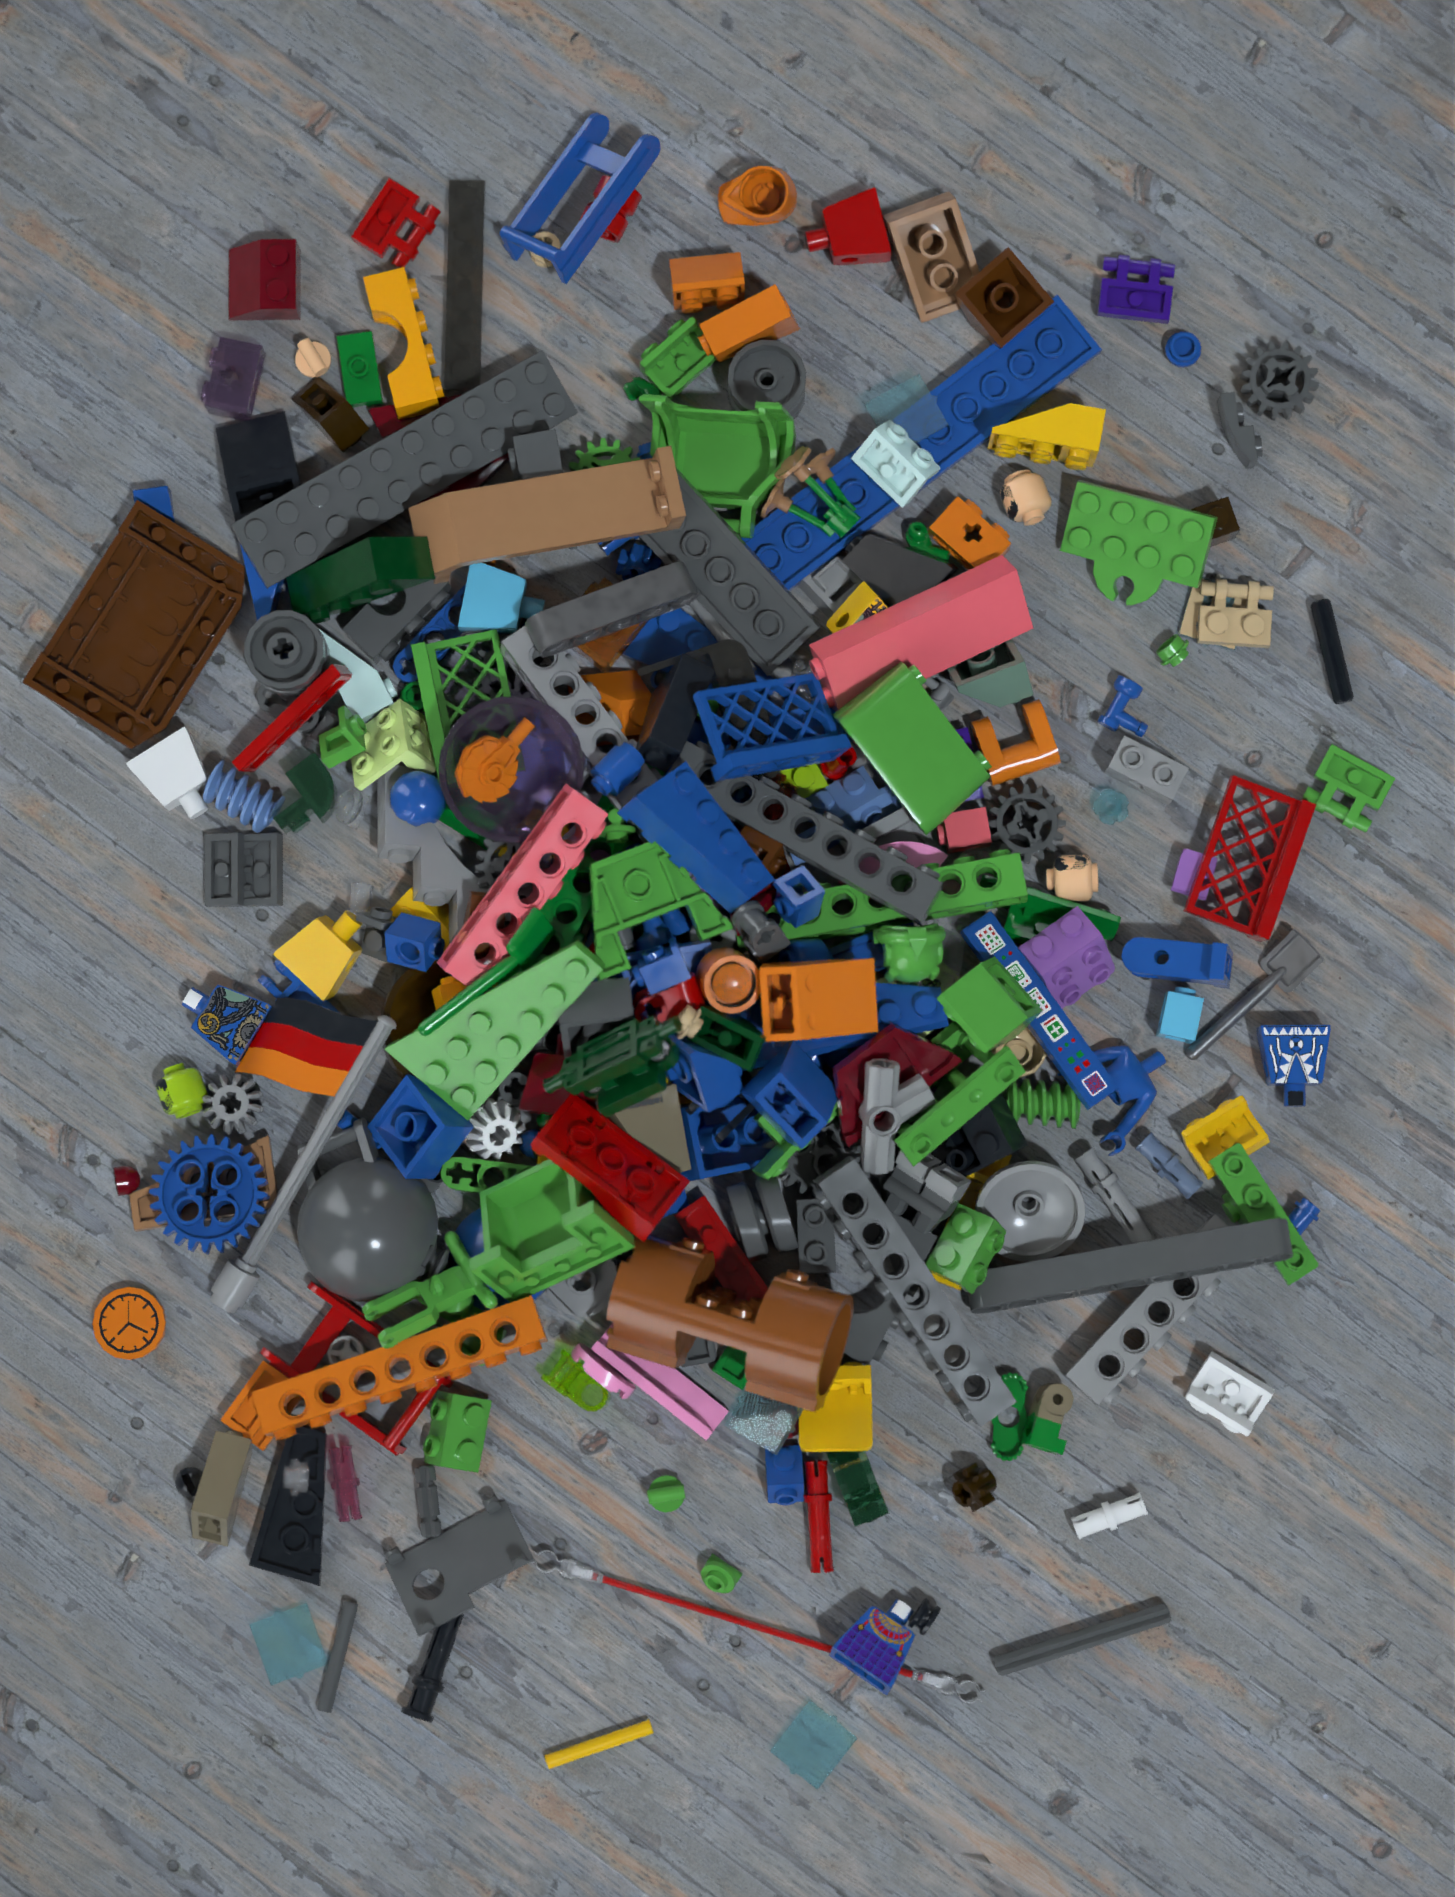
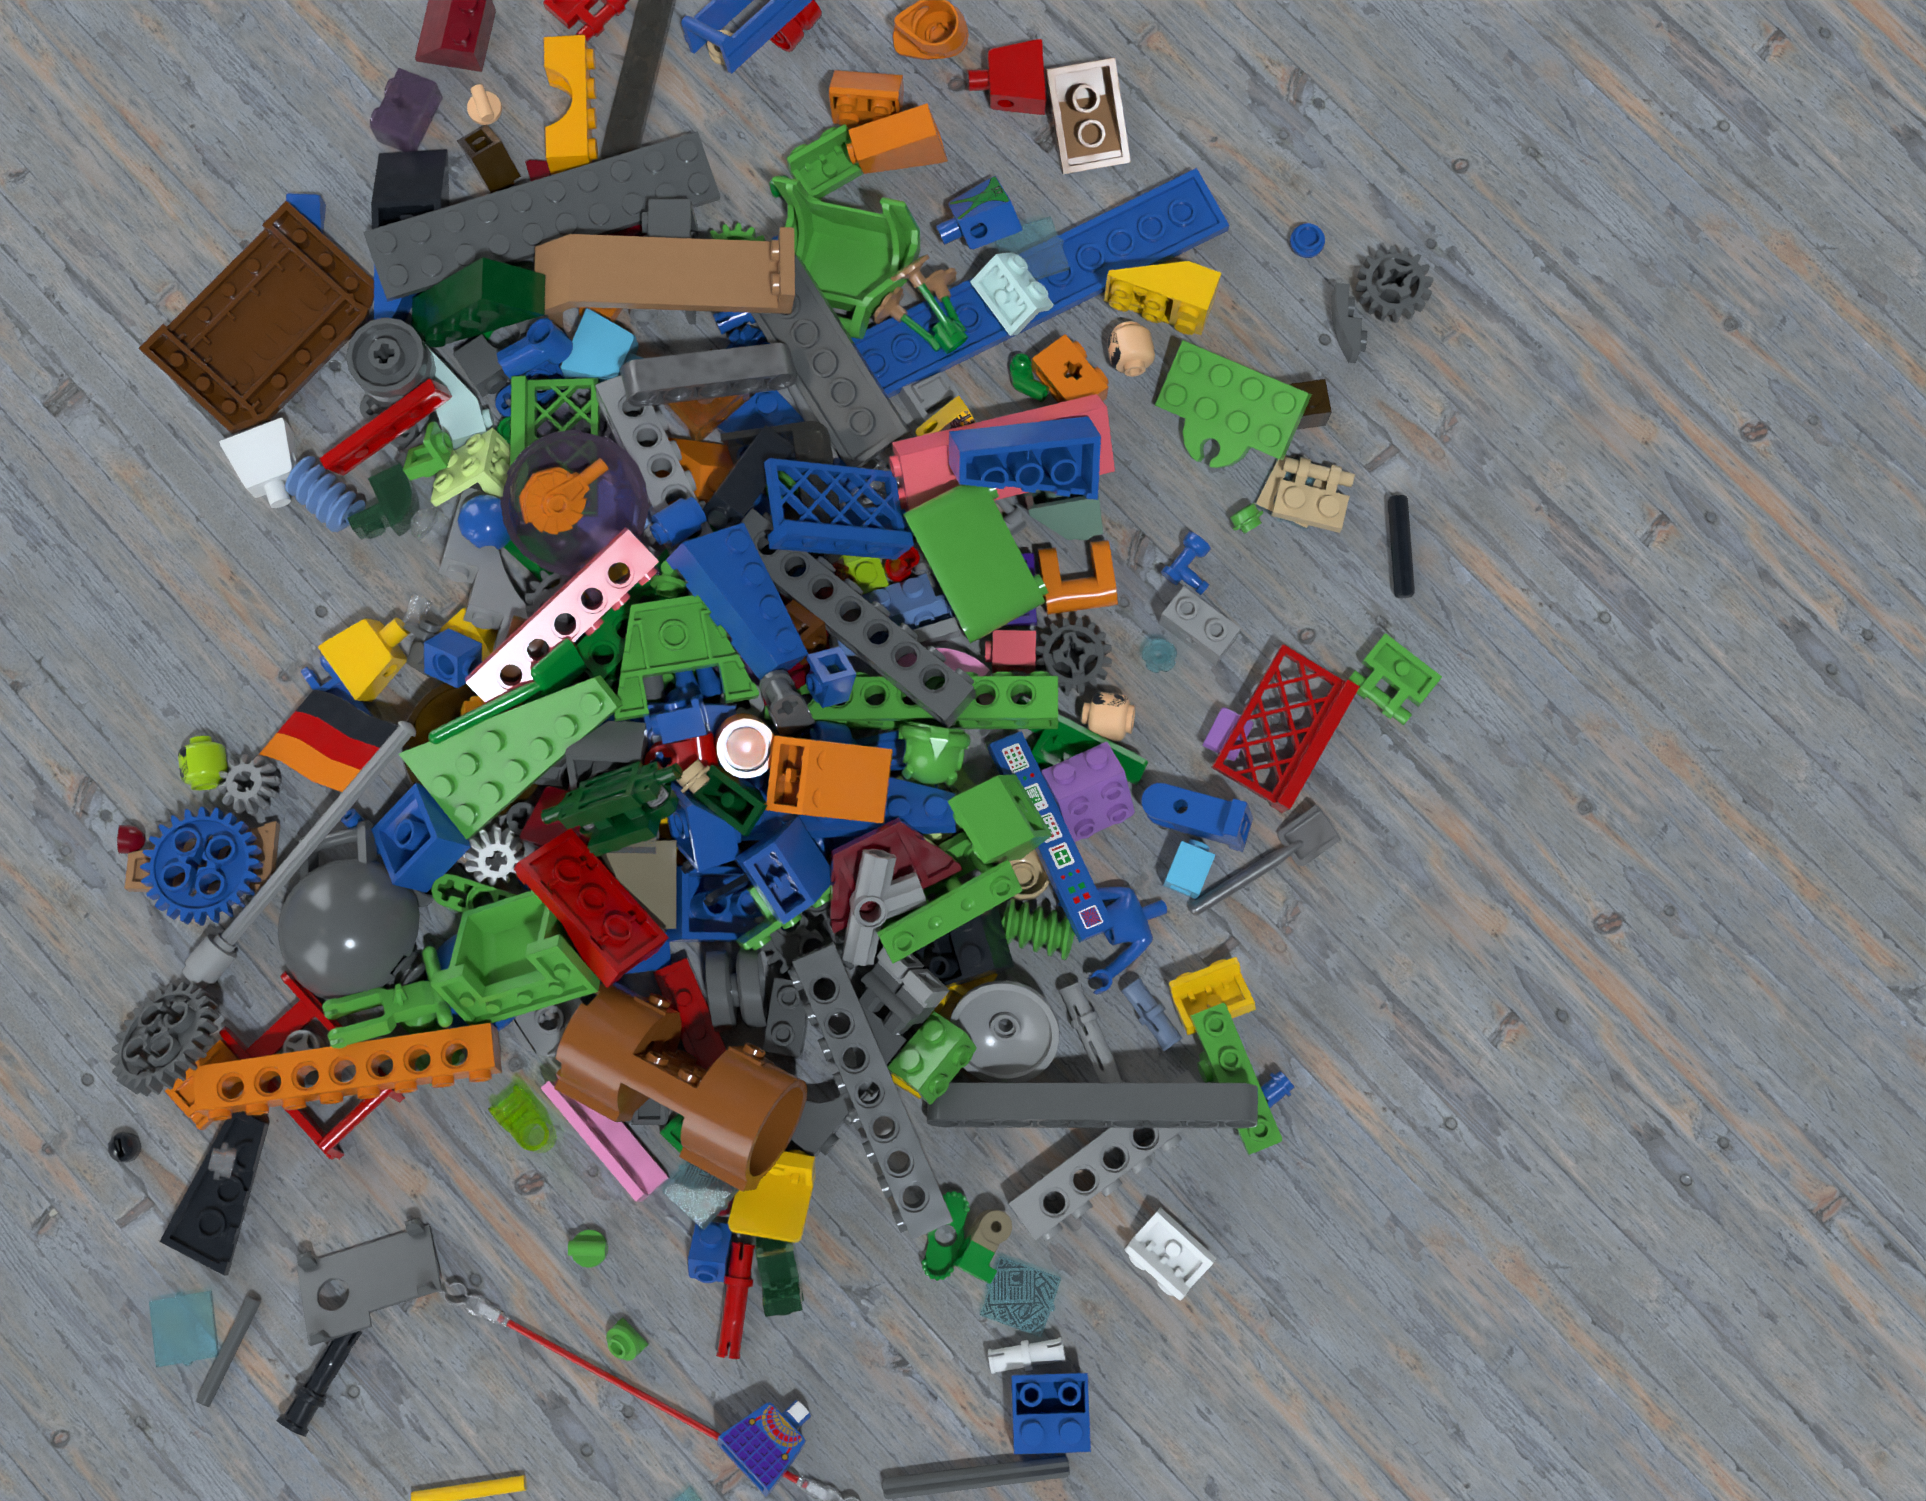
camera: 10 degrees right, 5 degrees down
(129, 1323) = (101, 979): orange tile -> none
(201, 1364) = (165, 1039): none -> dark grey gear
(221, 1487) = (149, 1158): dark tan slope -> none
(227, 1019) = (260, 702): torso -> none
(243, 870) = (312, 565): dark grey slope -> none
(345, 1483) = (274, 1177): clear pink pin -> none
(360, 369) = (526, 124): green plate -> none
(428, 1501) = (352, 1211): dark grey axle -> none
(436, 605) = (541, 344): none -> blue piece
(457, 1431) = (395, 1146): bright green bracket -> none
(603, 1371) = (547, 1113): bright pink tile -> none
(767, 364) = (907, 181): dark grey wheel -> none
(849, 387) = (980, 216): none -> blue torso
(895, 569) = (989, 390): black slope -> none
(924, 1616) = (820, 1423): black bush -> none
(950, 637) = (1030, 456): none -> blue wedge
(974, 1487) = (896, 1300): dark brown gear -> none
(1002, 299) = (1142, 160): reddish brown slope -> none
(1092, 1461) = (1020, 1296): none -> clear light blue piece
(1136, 299) = (1270, 186): dark purple plate -> none
(1143, 1566) = (1050, 1413): none -> blue slope
(1293, 1058) = (1294, 930): torso -> none

